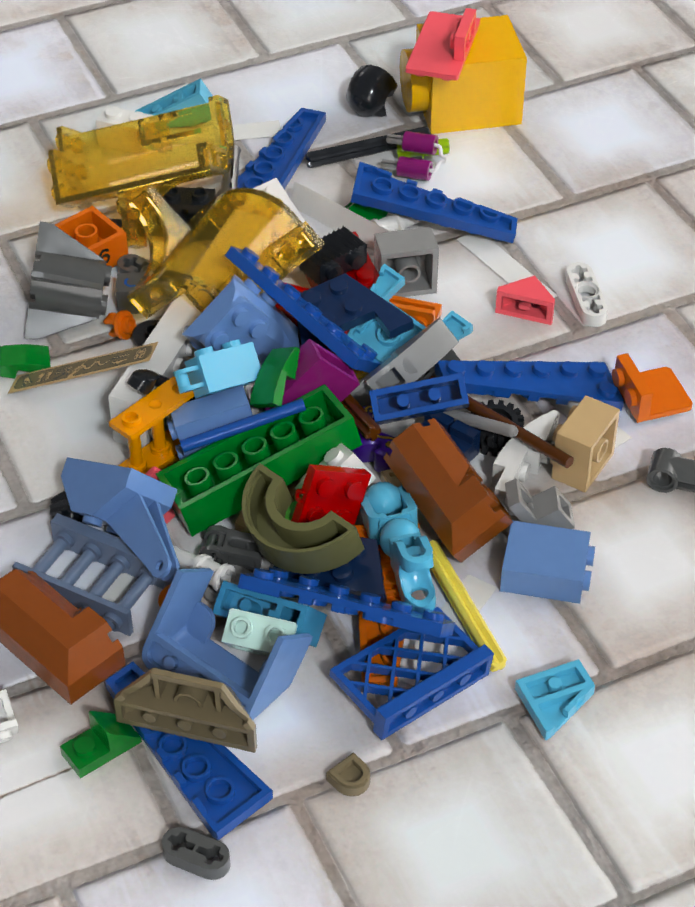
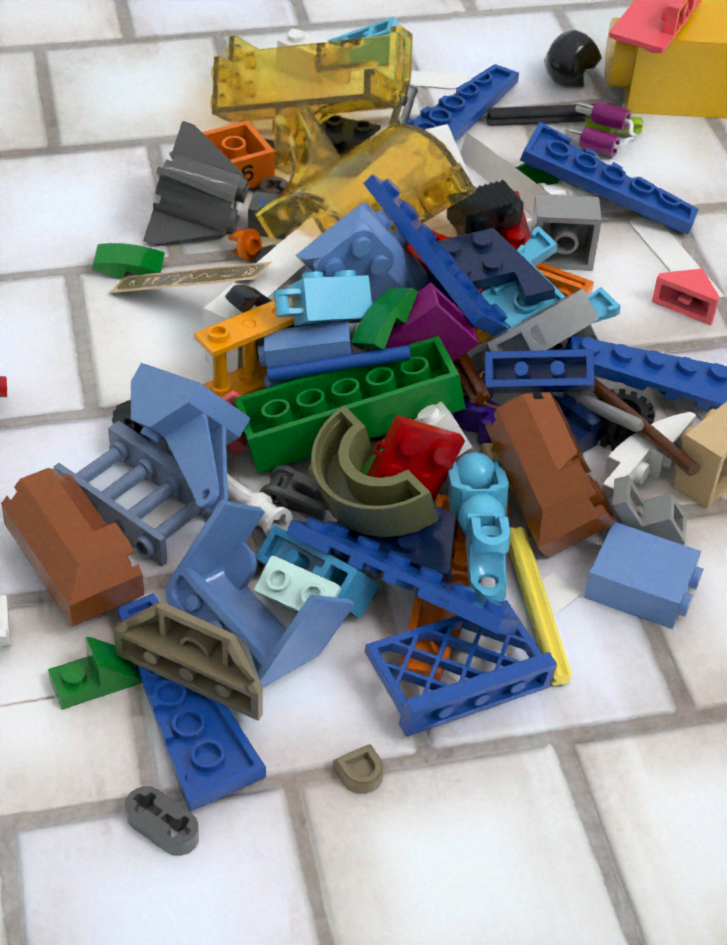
camera: 10 degrees right, 0 degrees up
(555, 695) = (618, 726): medium azure wing -> none

